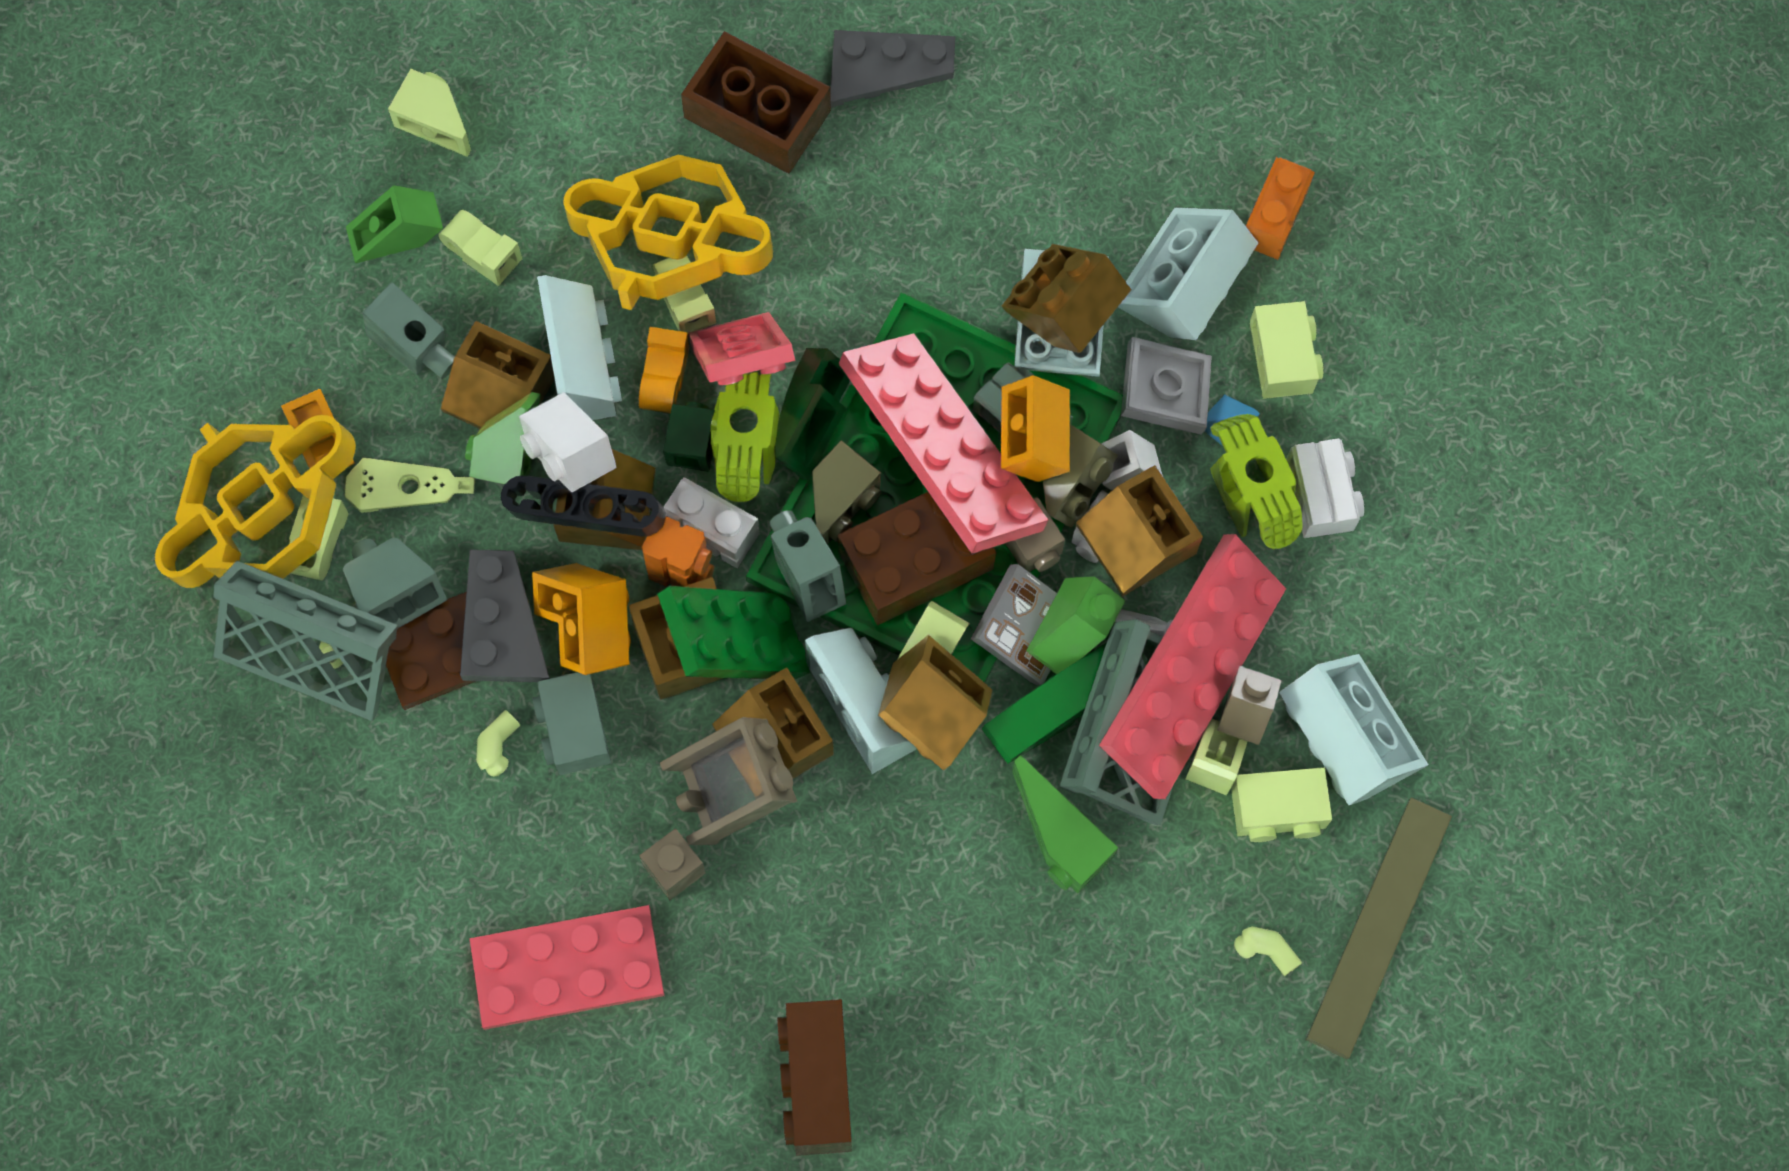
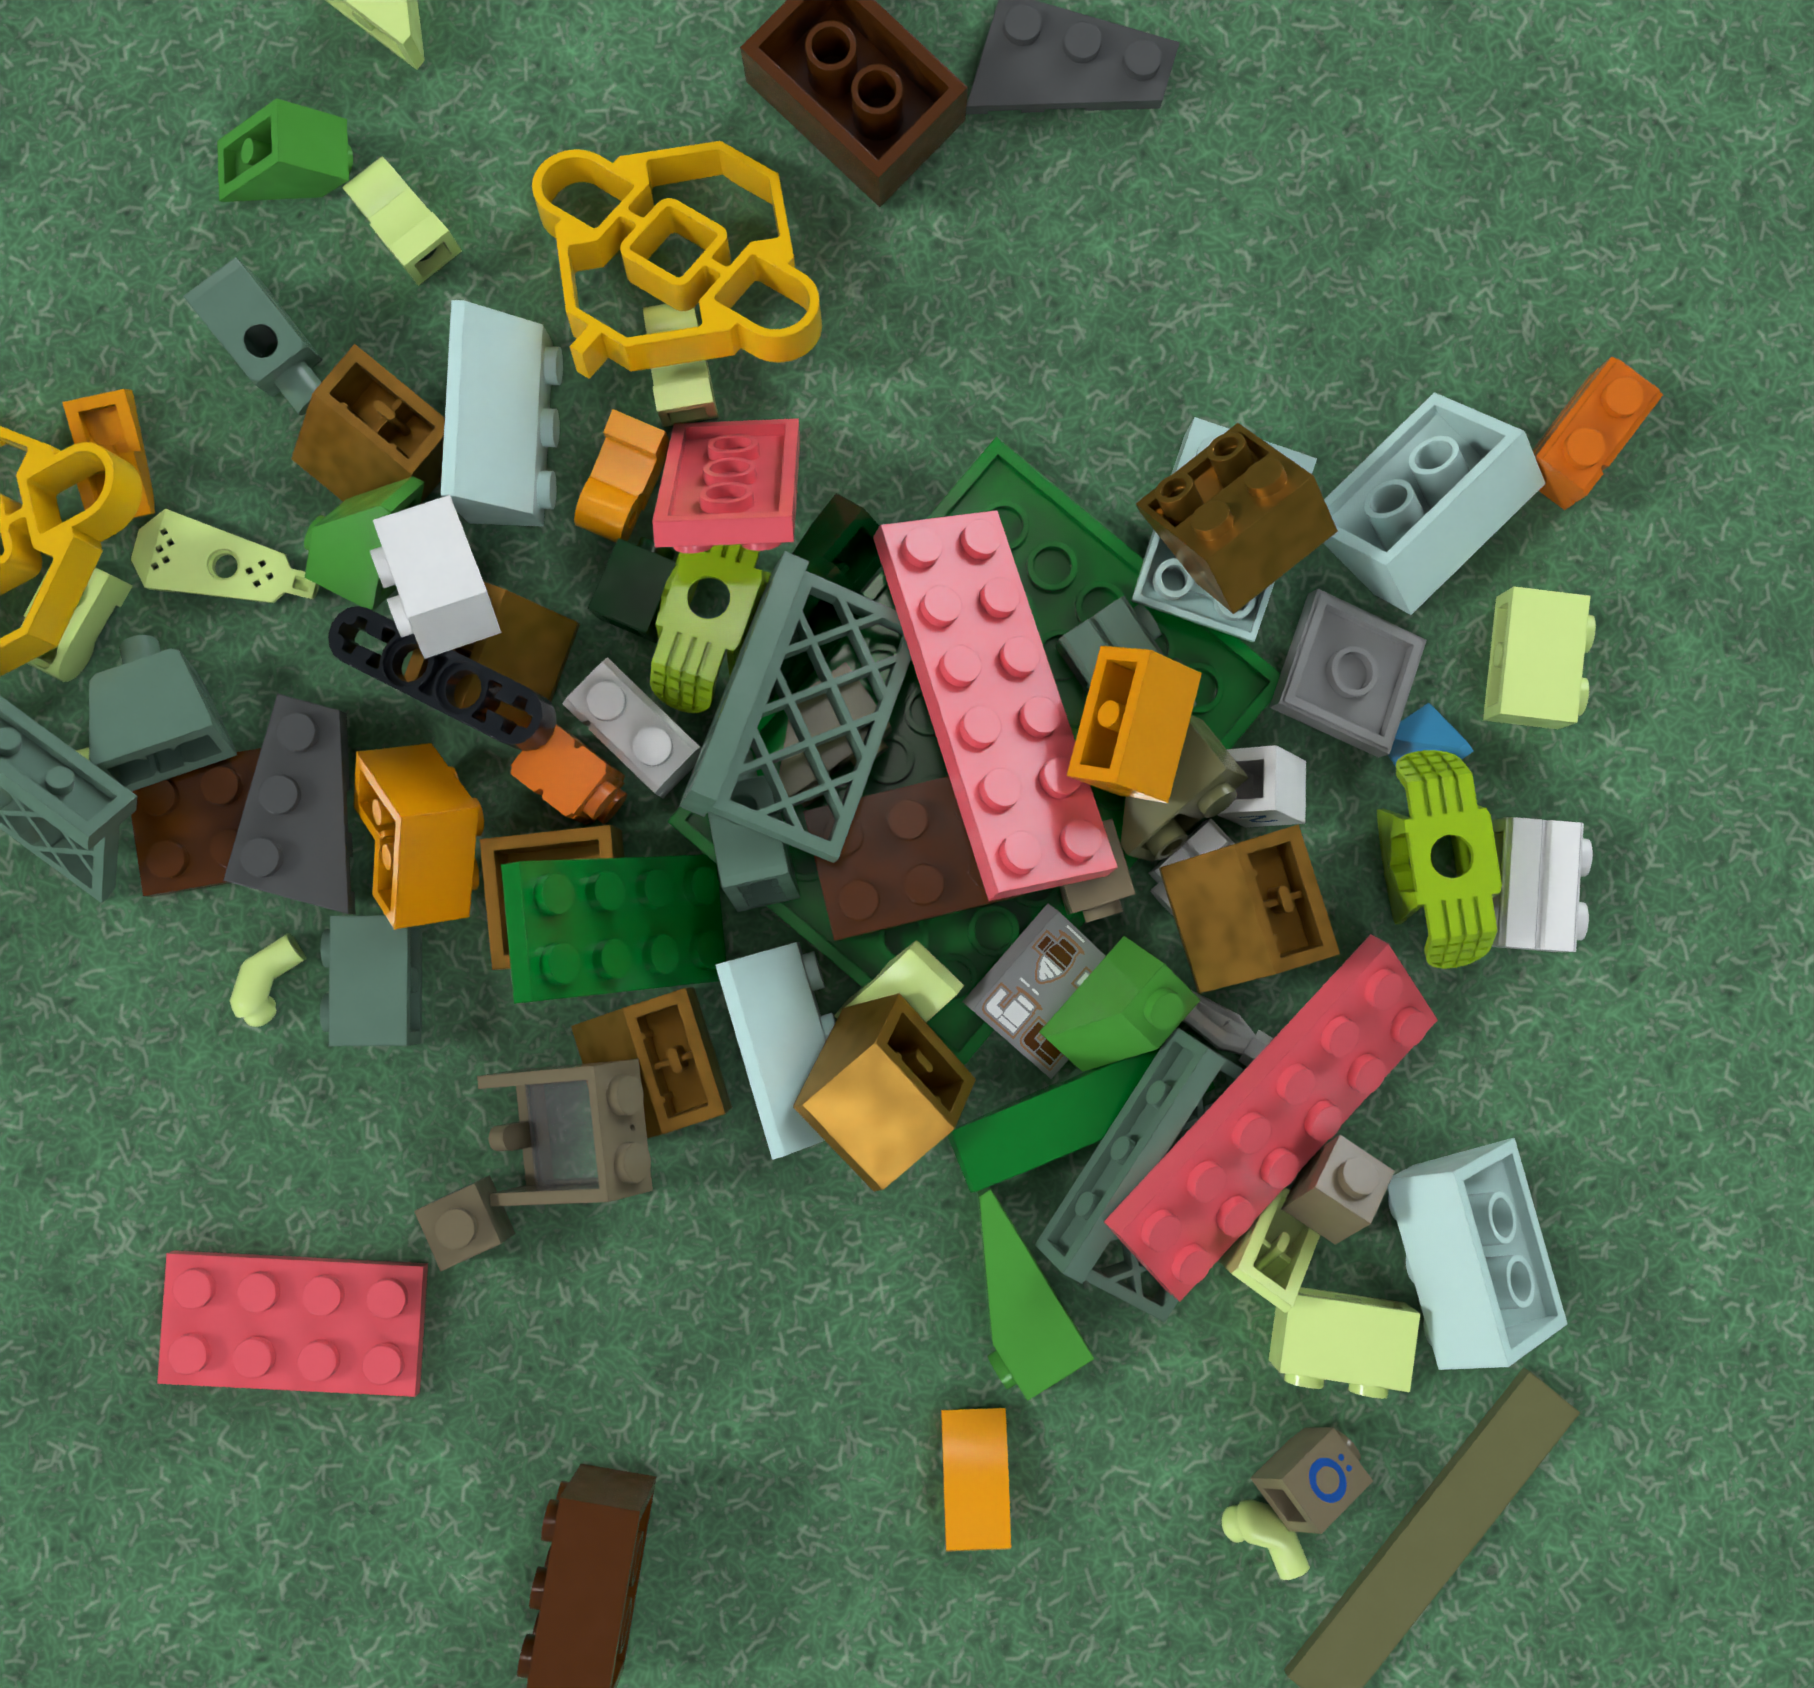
camera: 15 degrees right, 15 degrees up
(786, 471) = (746, 703): none -> sand green fence
(1061, 957) = (976, 1479): none -> light orange slope
(1285, 897) = (1312, 1479): none -> dark tan brick

